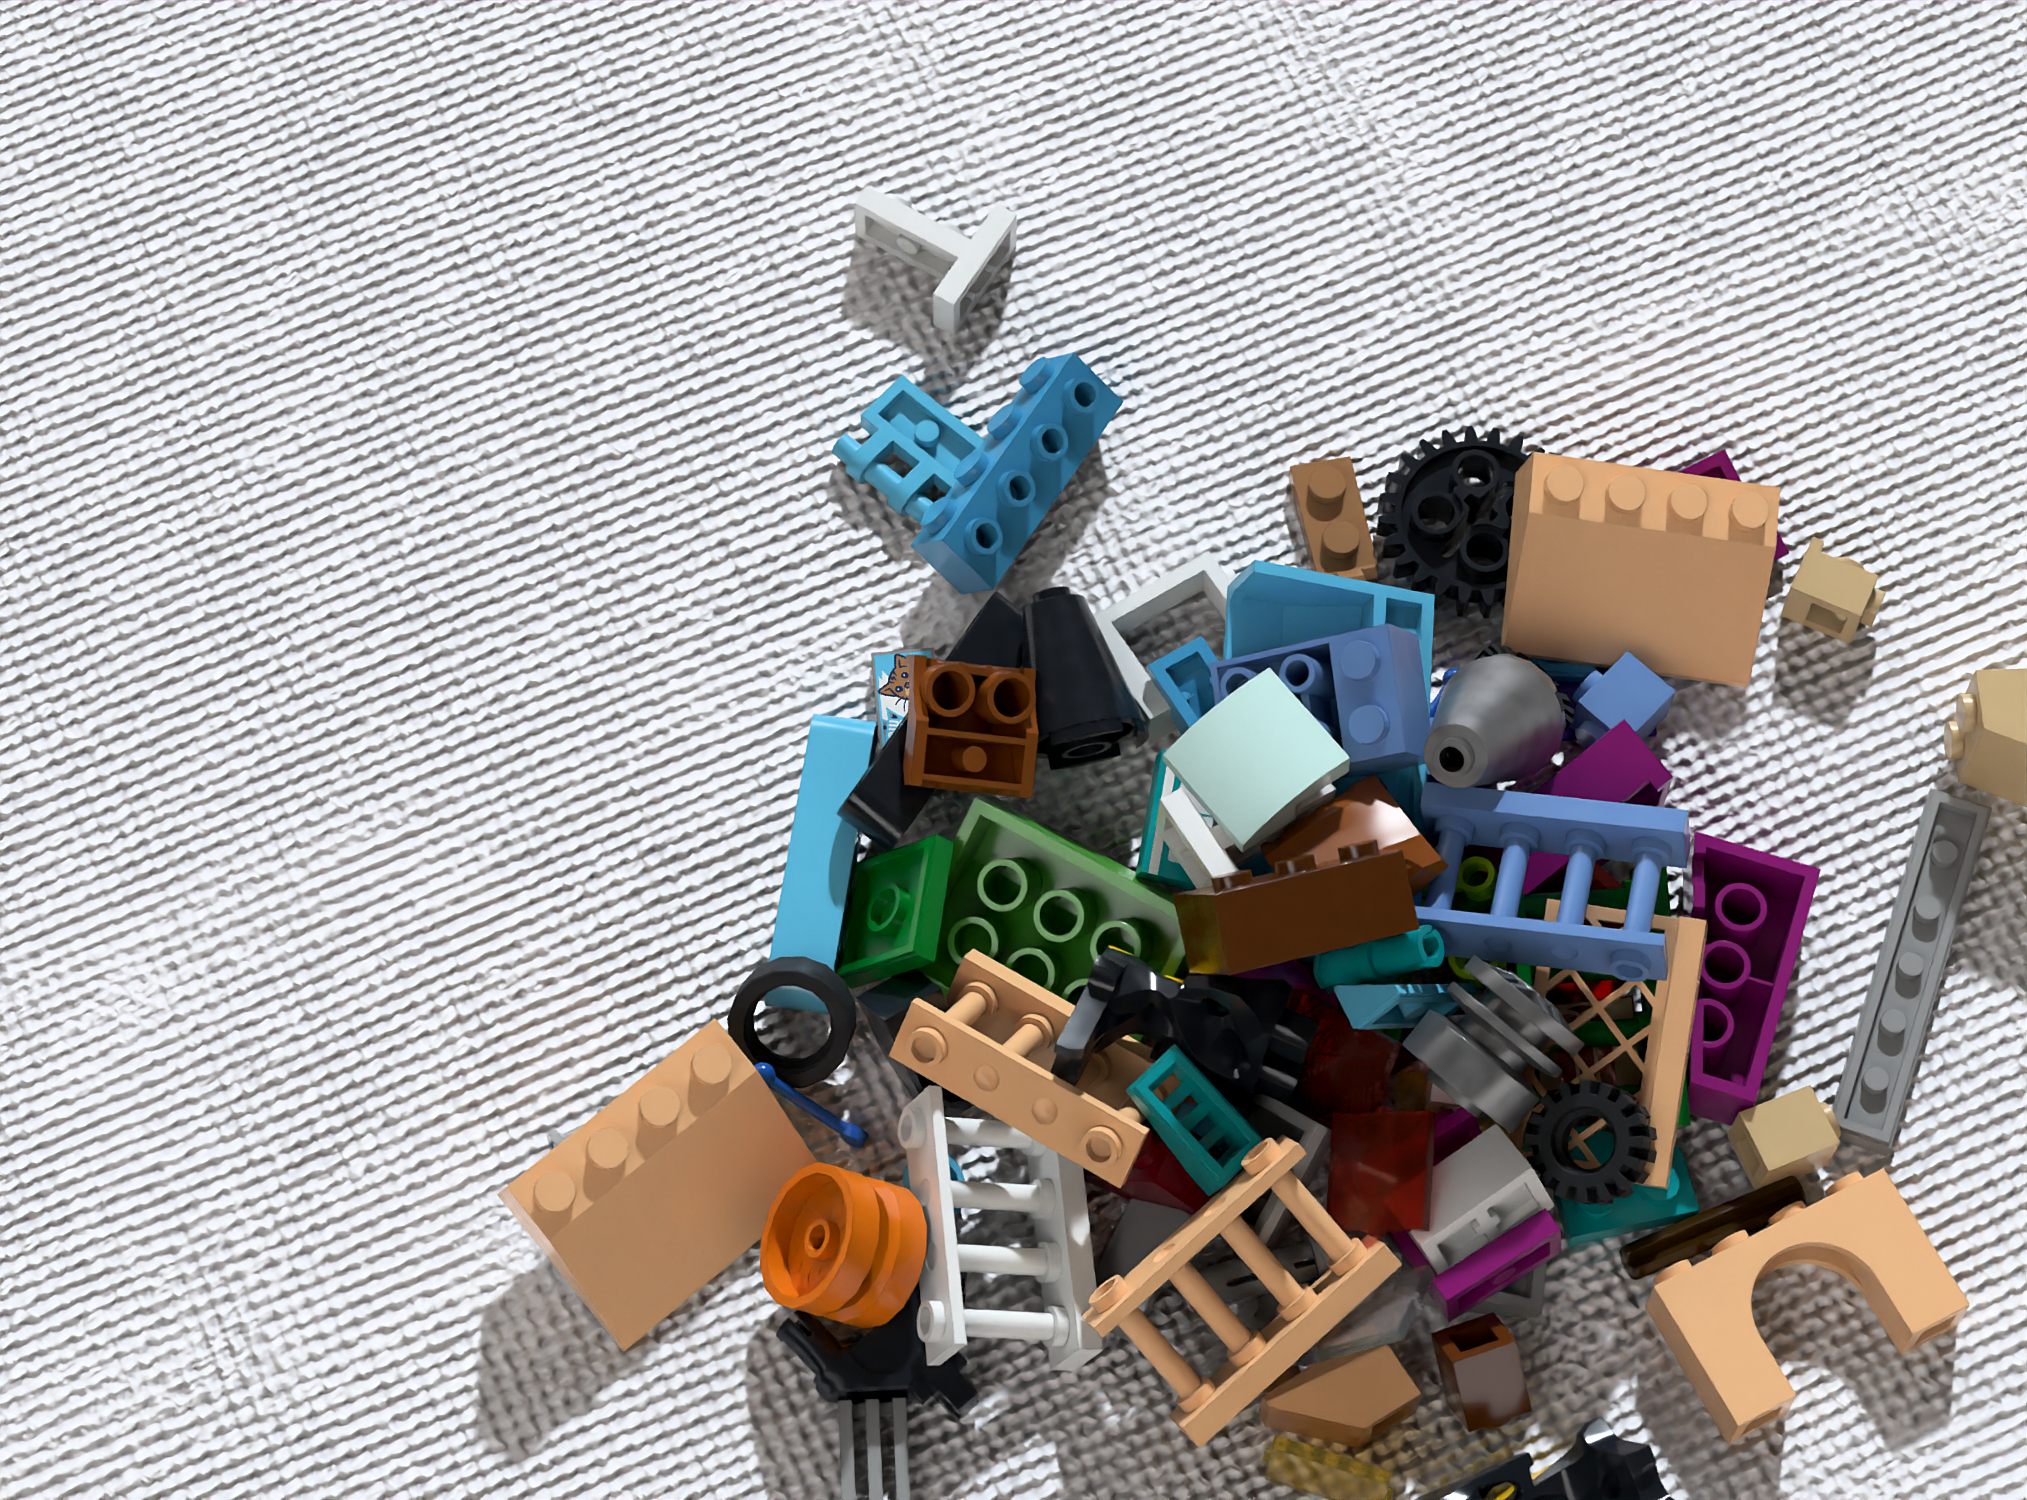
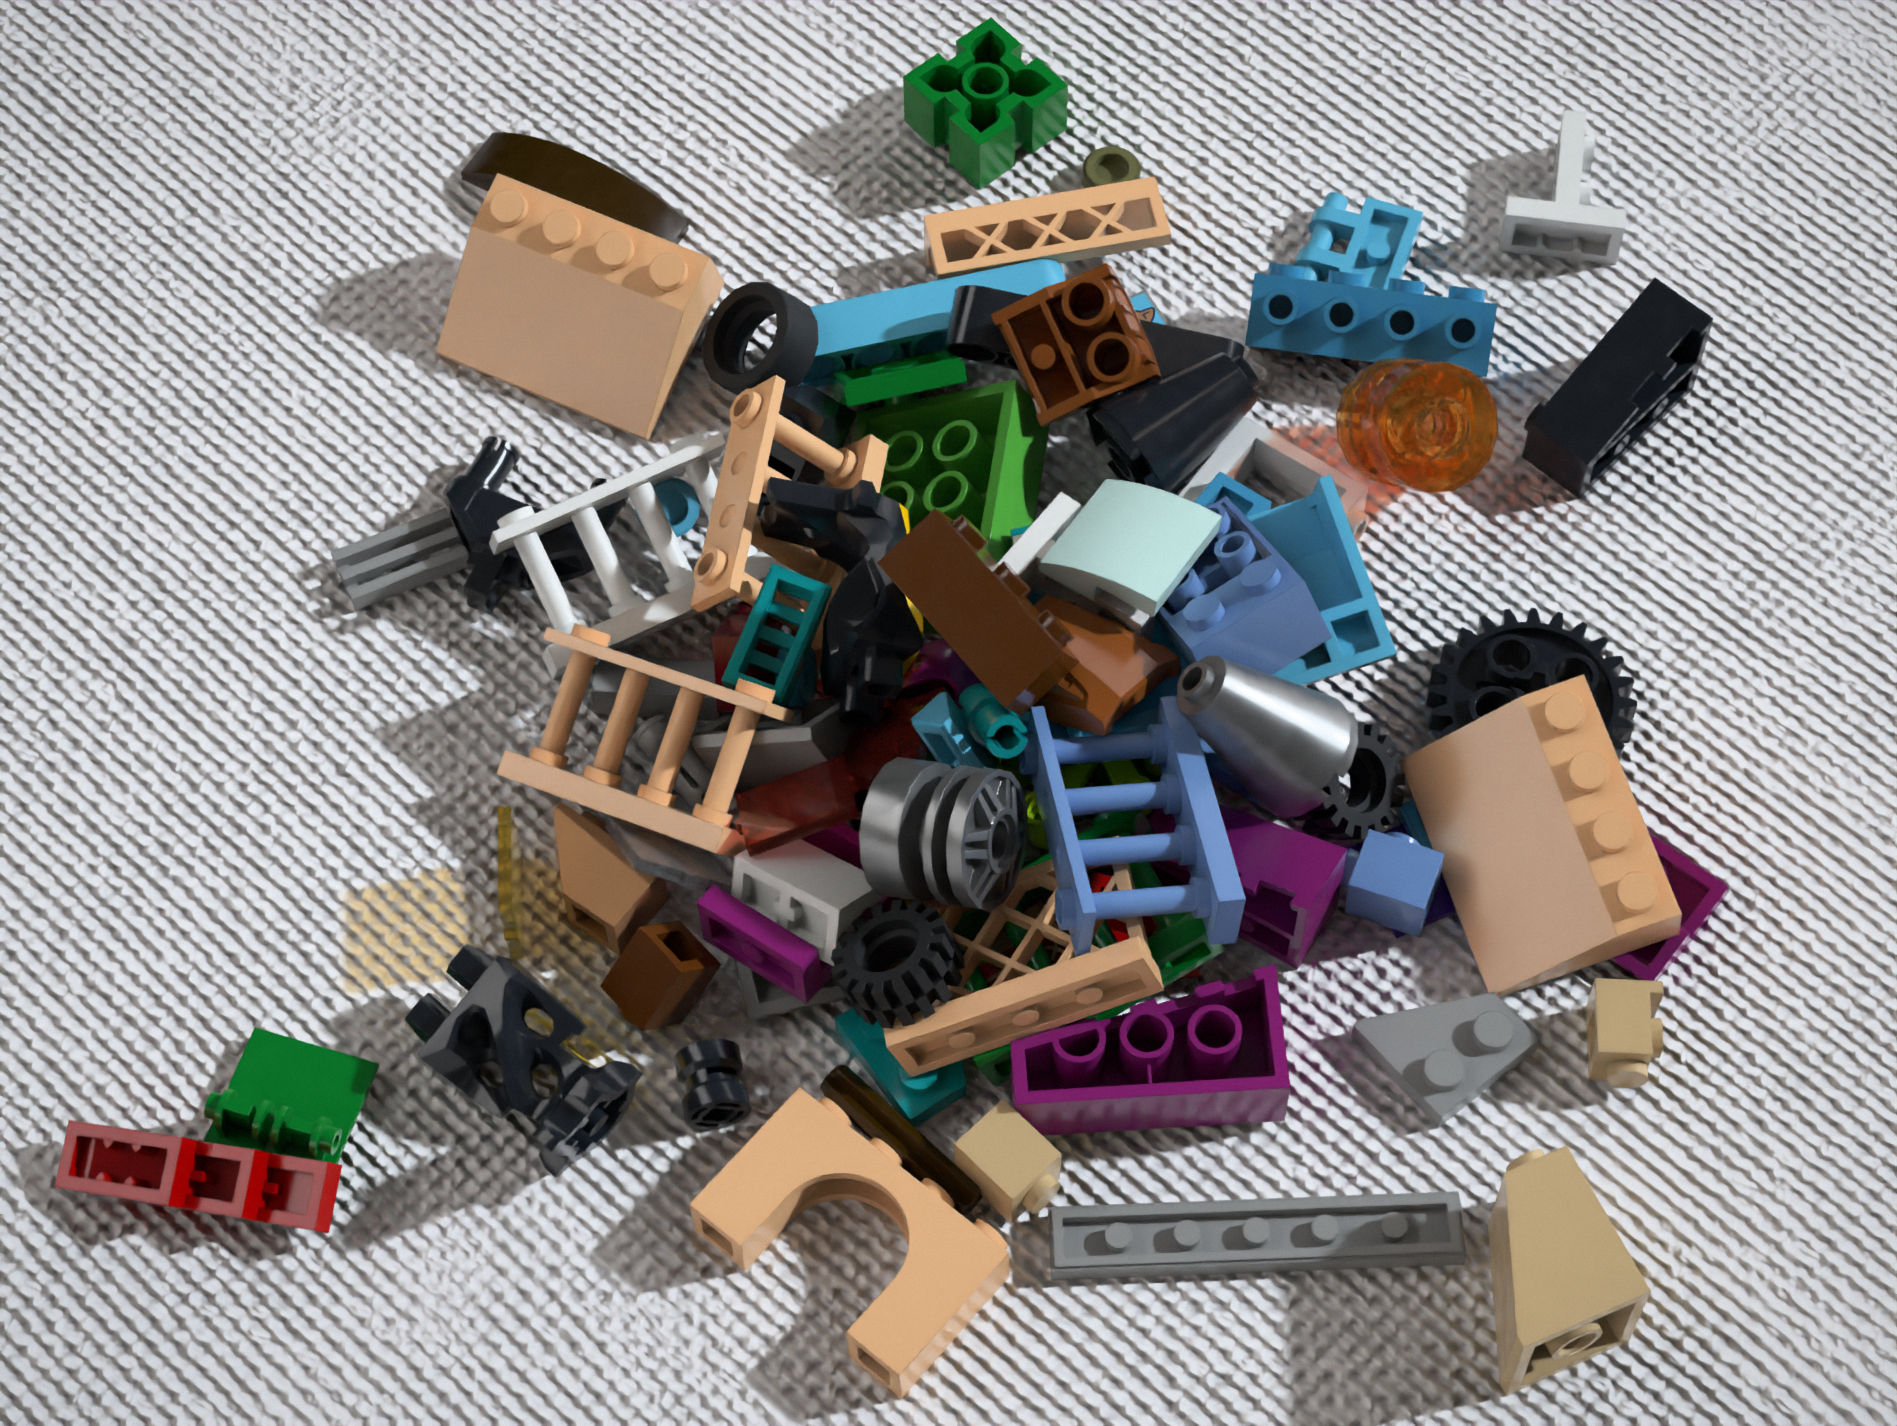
camera: 70 degrees right, 5 degrees down
(481, 1142) = (575, 179): none -> dark brown slope
(599, 671) = (985, 103): none -> green brick
(708, 630) = (1109, 166): none -> olive tile
(750, 713) = (1048, 226): none -> light nougat fence
(843, 1246) = (566, 448): orange wheel -> none
(848, 1132) = (701, 340): blue hinge -> none
(1170, 478) = (1417, 424): none -> clear orange wheel
(1185, 305) = (1619, 389): none -> black wedge
(1333, 519) = (1459, 596): medium nougat hinge -> none
(1603, 1369) = (712, 1084): none -> black wheel
(1789, 740) = (1447, 1050): none -> light grey wing

